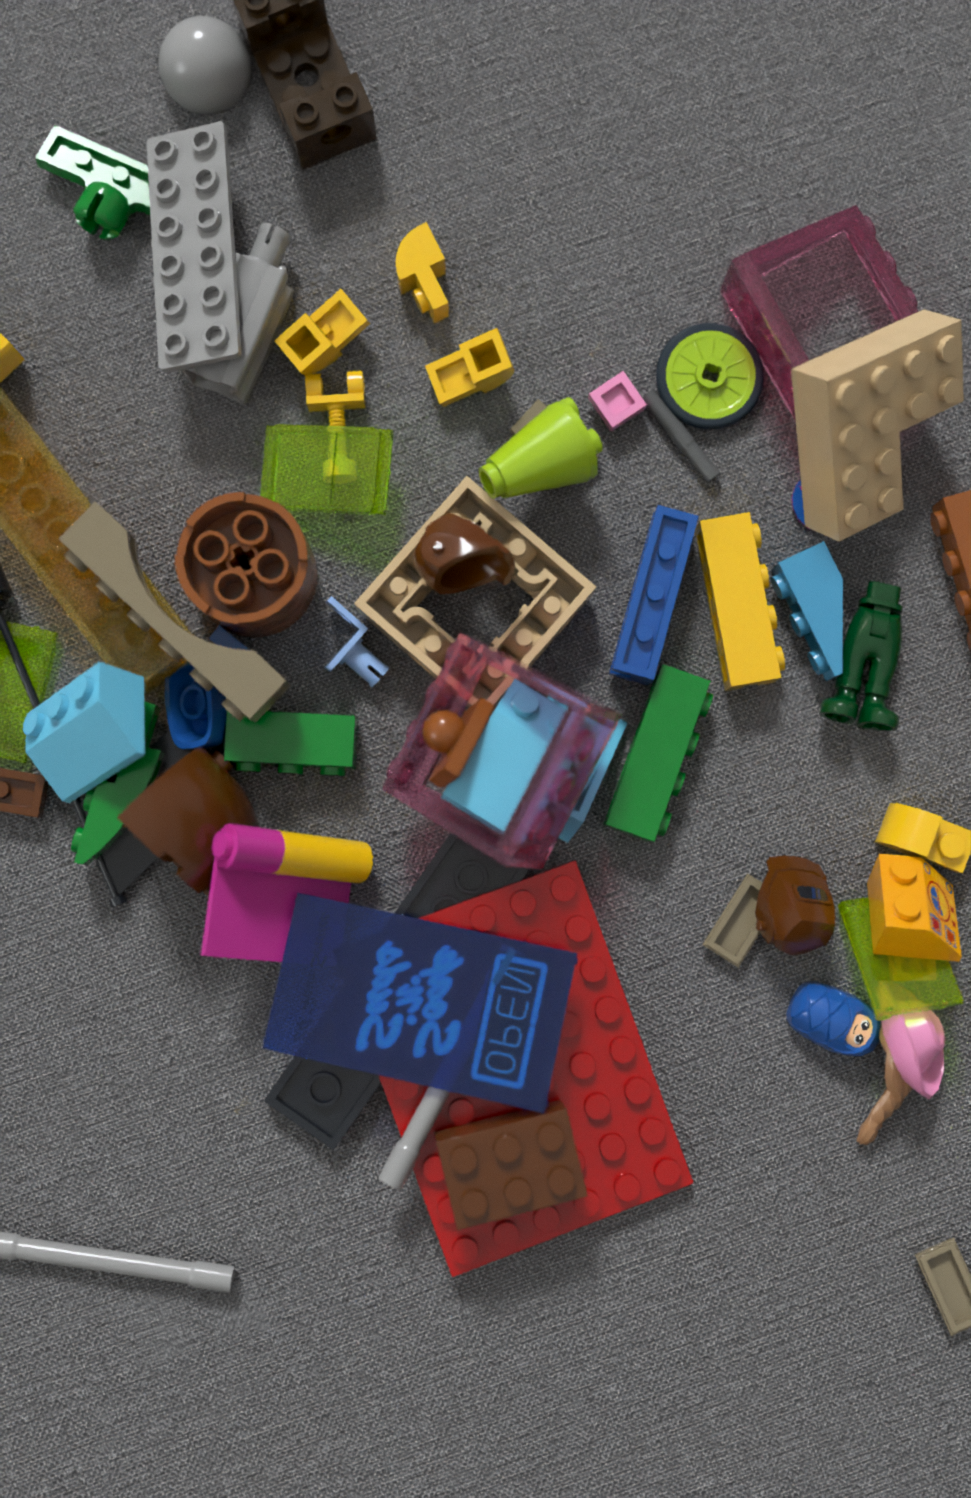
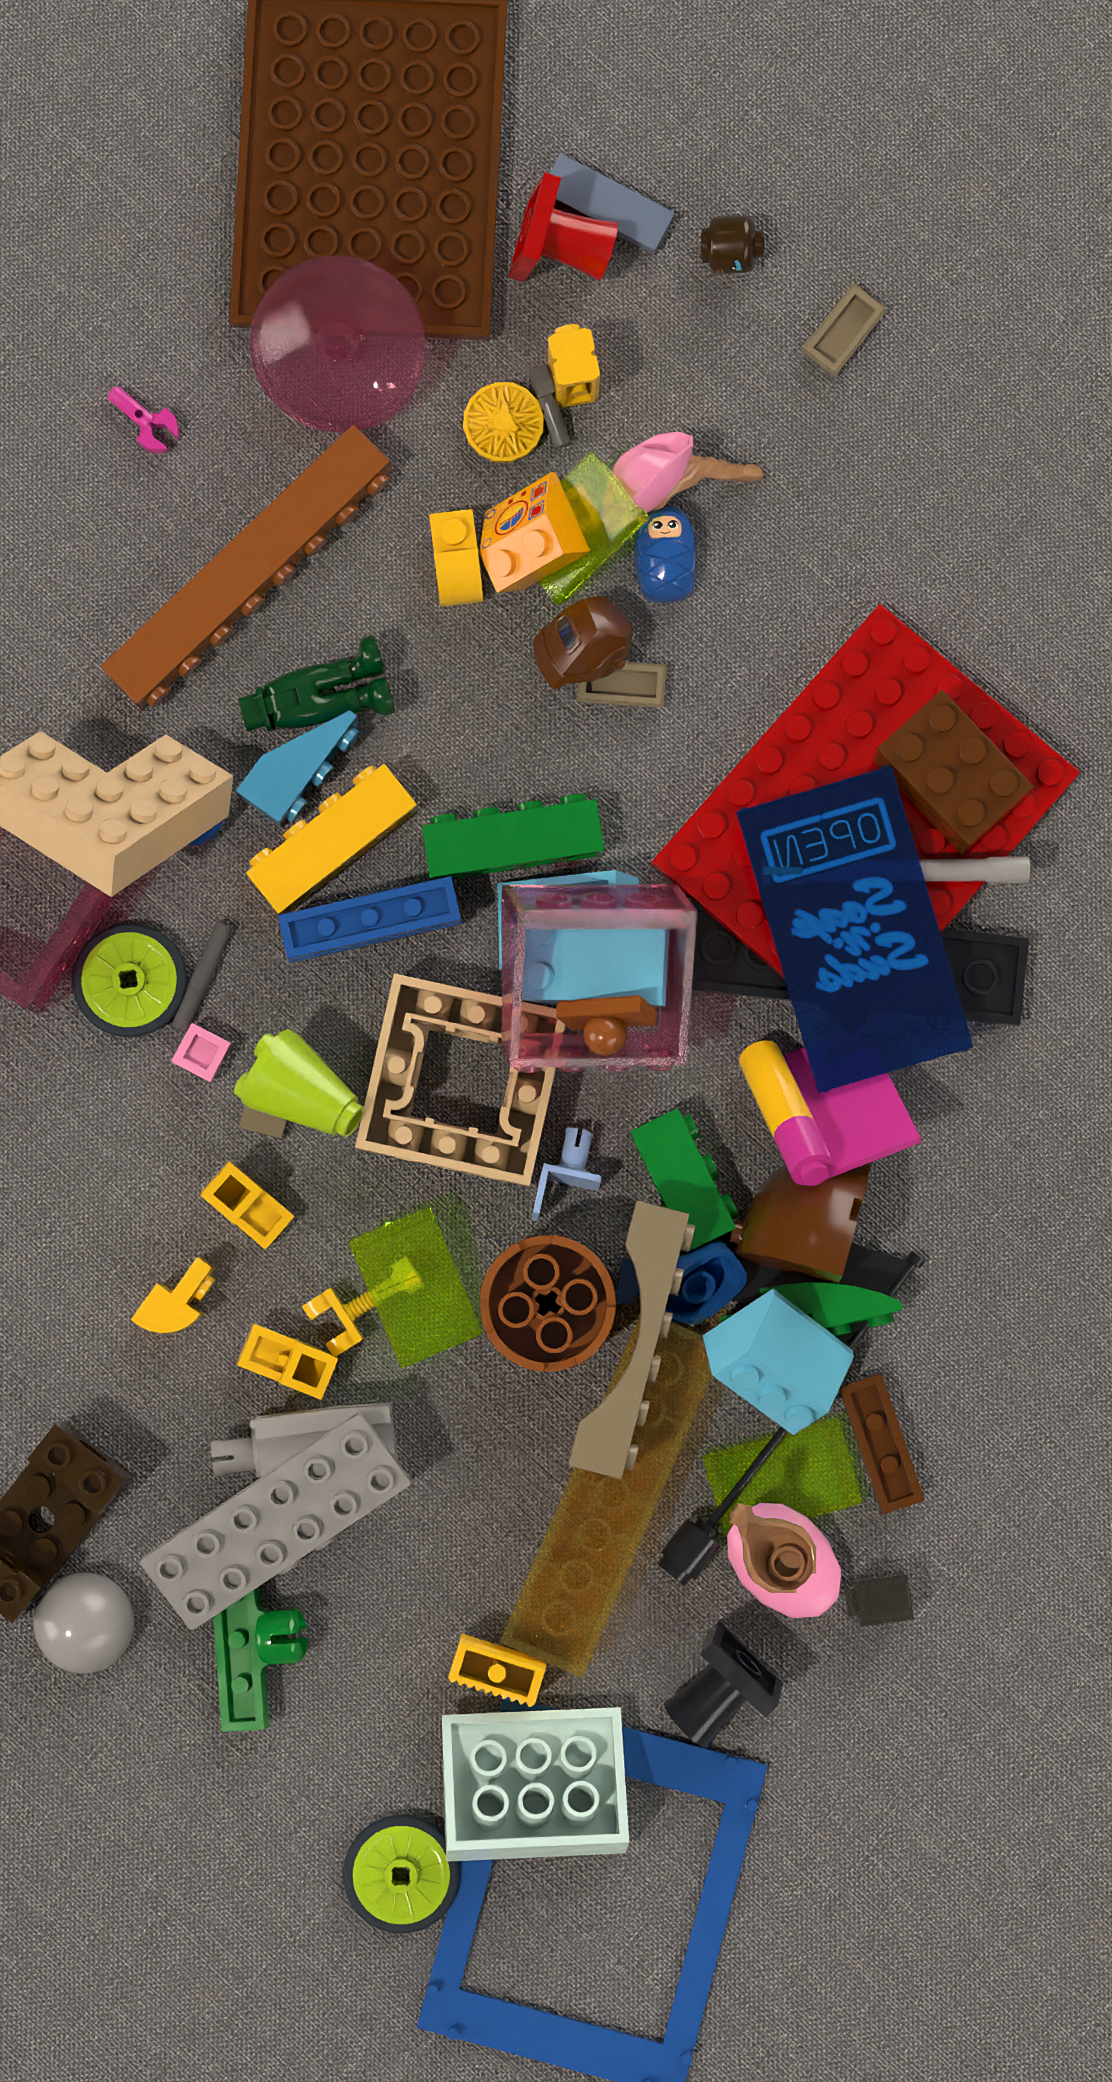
camera: 120 degrees left, 0 degrees up
(461, 556) = (436, 1108): reddish brown helmet -> none

